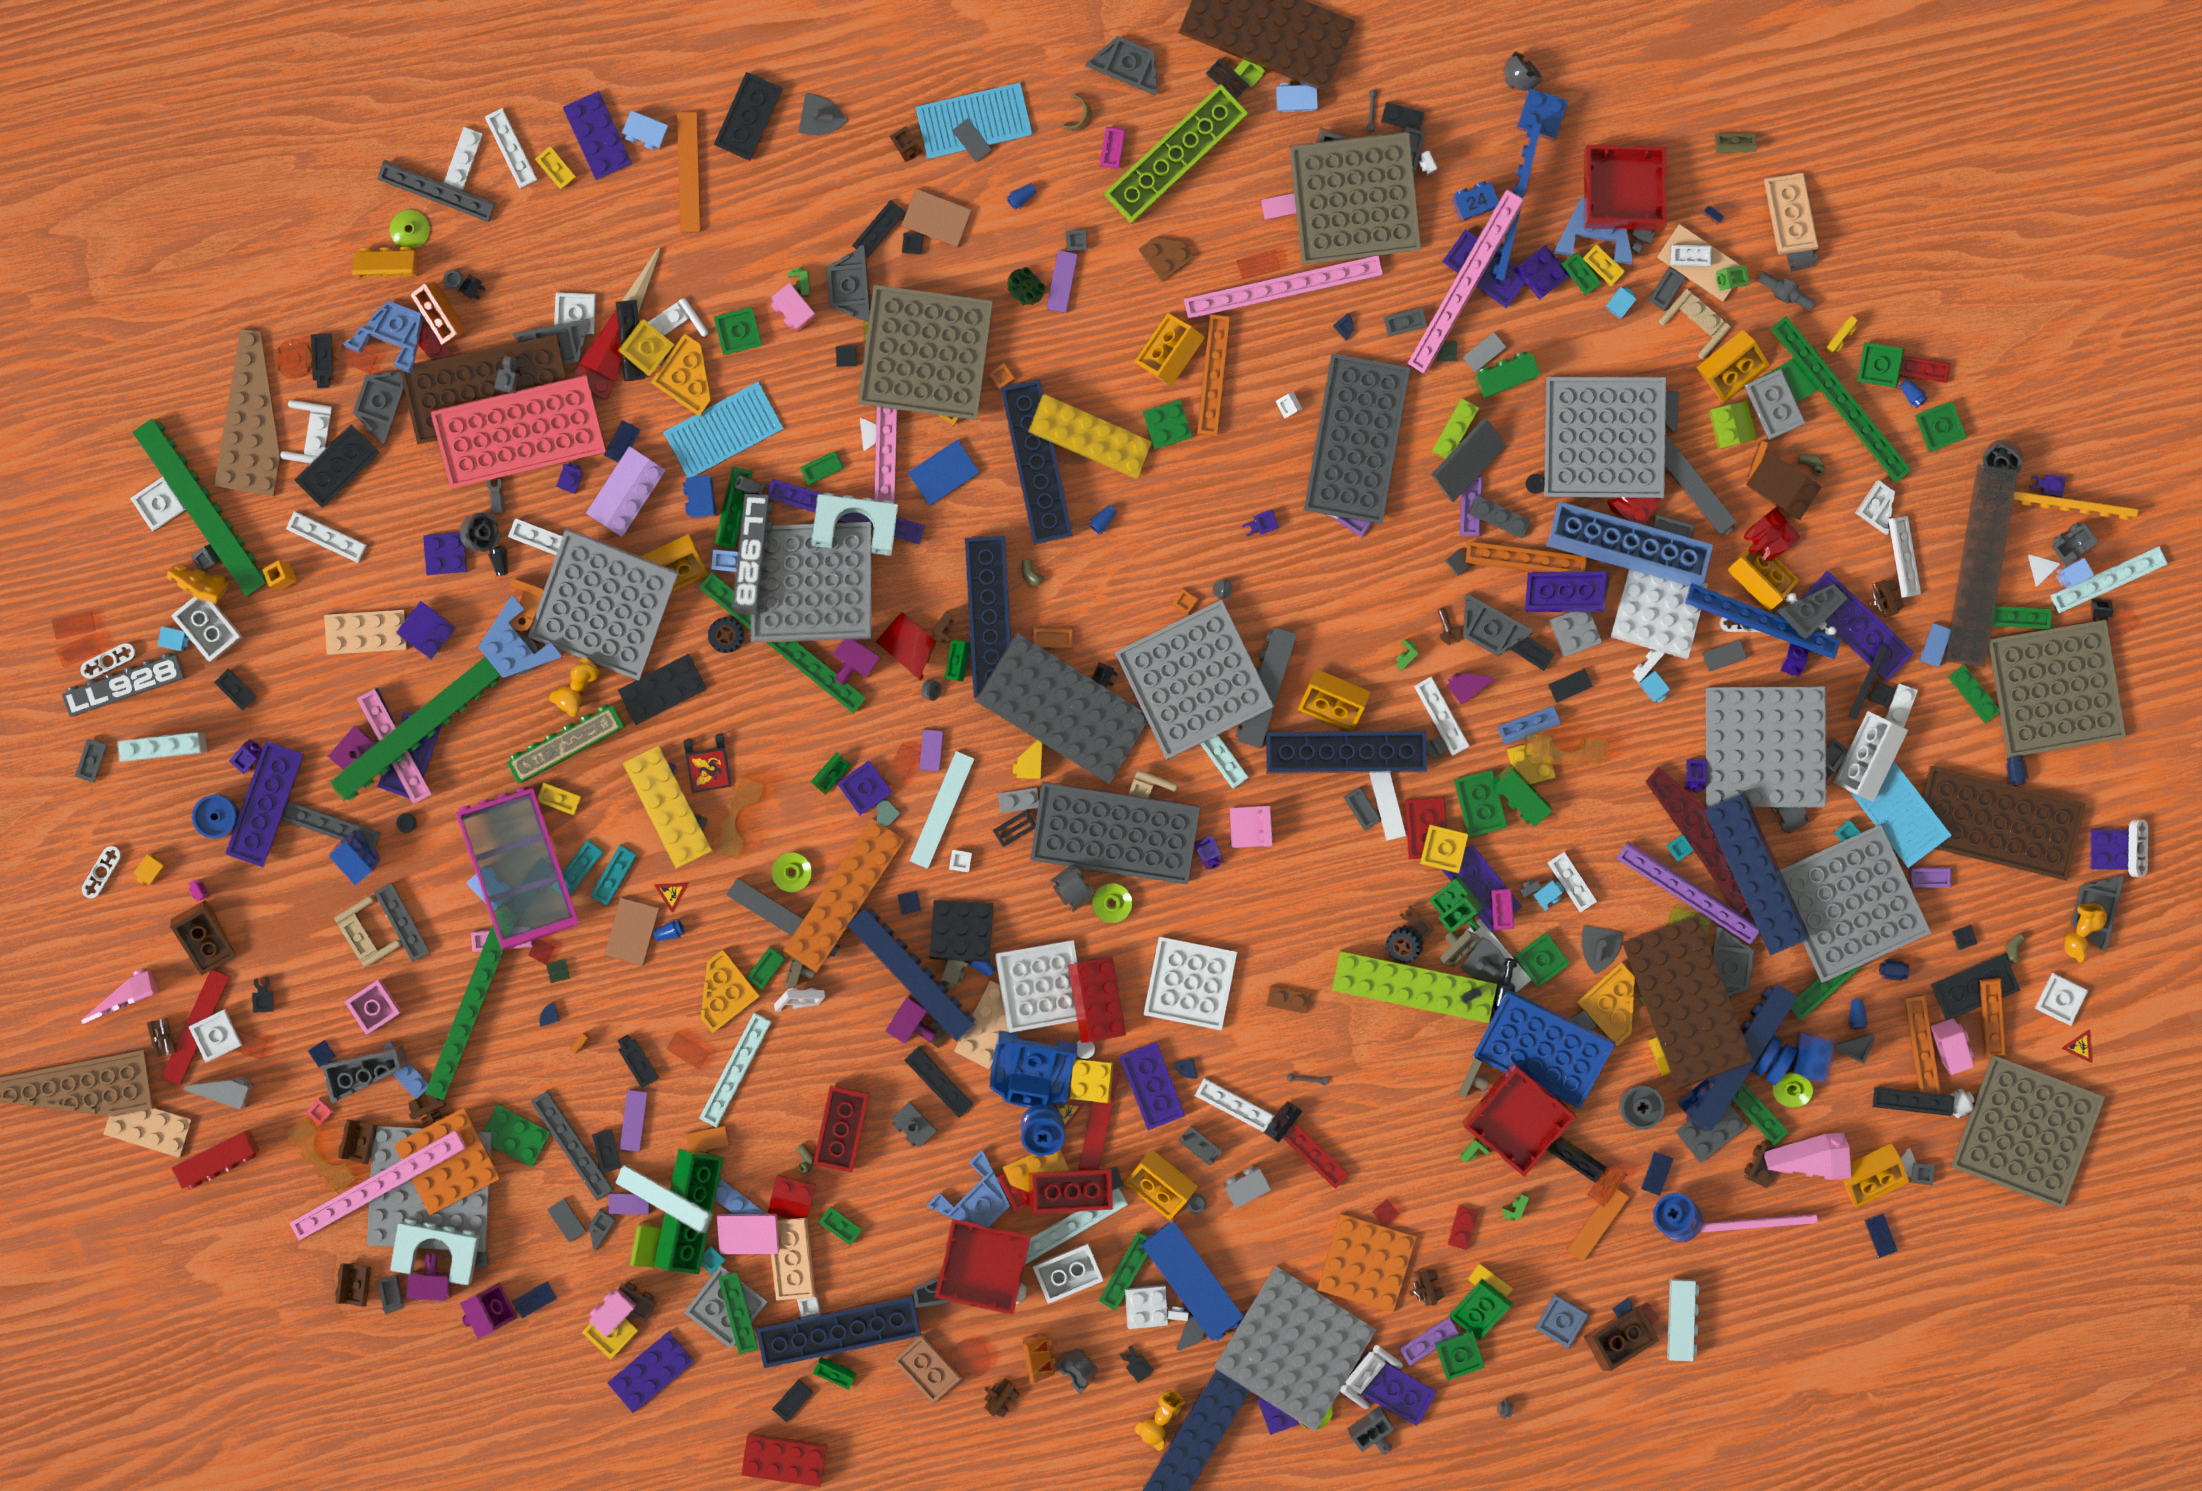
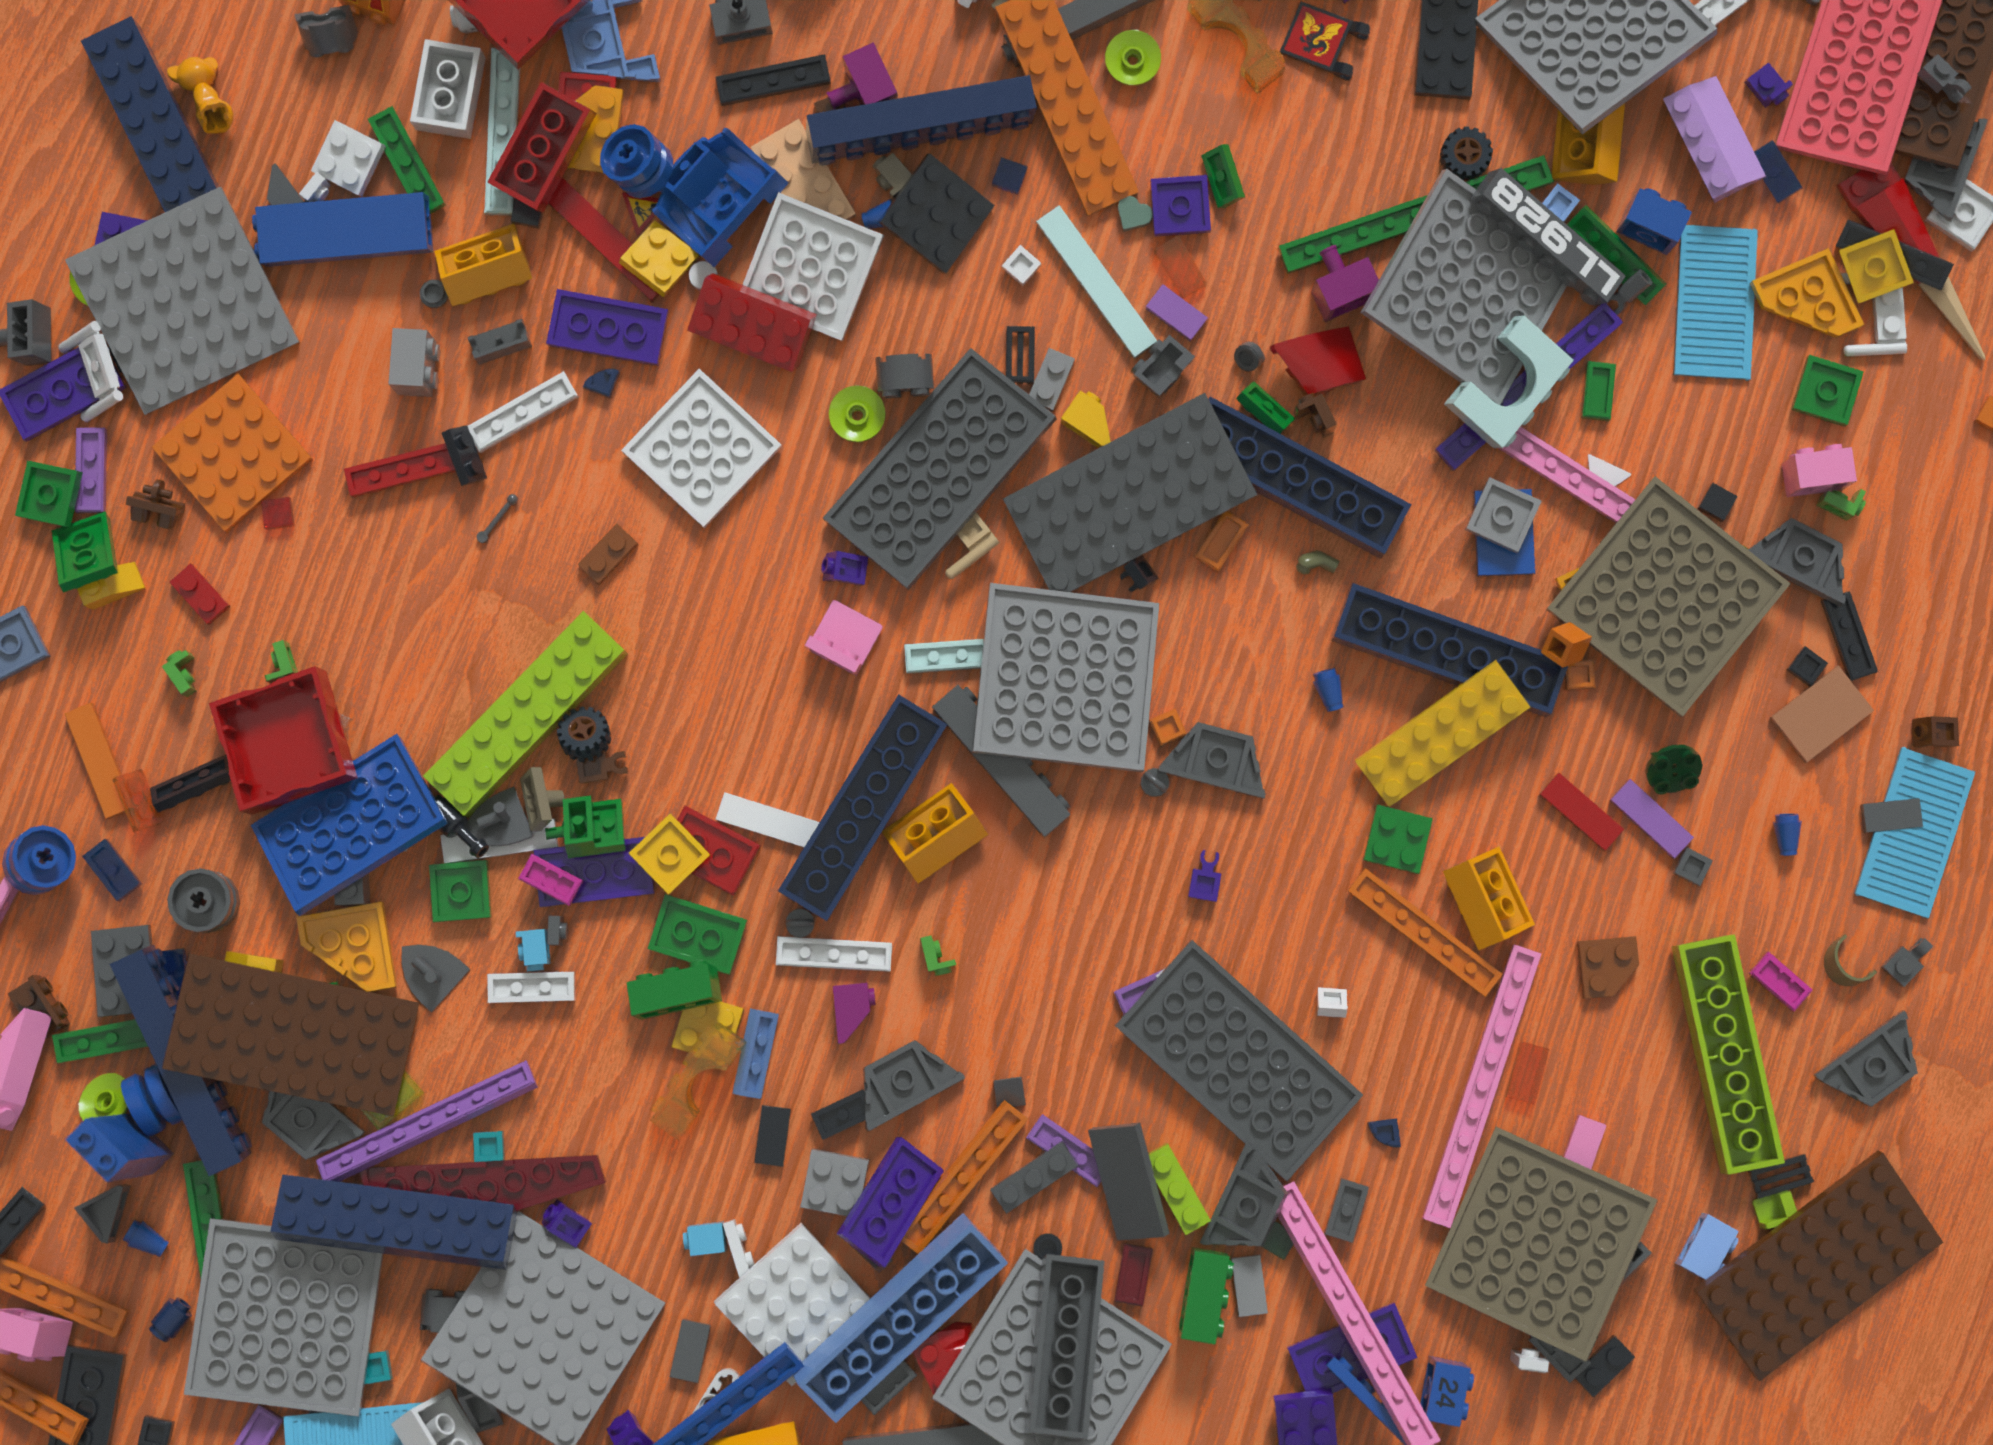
camera: 120 degrees right, 5 degrees down
(935, 479) = (1503, 515): none -> light grey plate
(970, 737) = (1164, 365): none -> dark grey cylinder
(993, 395) = (1566, 644): none -> orange brick
(1056, 81) = (1904, 963): none -> dark grey plate
(1083, 325) = (1581, 811): none -> red tile
(1138, 1365) = (284, 106): black plate -> none
(1186, 560) = (1216, 759): none -> dark grey wing
(1362, 808) = (782, 786): dark grey tile -> none
(1370, 127) = (1614, 1318): dark grey hinge -> none
(1438, 382) = (1247, 1203): none -> dark grey wing
(1447, 627) = (938, 1028): reddish brown bar -> none
(1470, 995) = (468, 772): black tile -> none
(1473, 1079) = (368, 717): dark tan tile -> none
(1519, 424) = (1133, 1274): none -> dark red tile
(1587, 438) = (1064, 1347): none -> dark grey brick

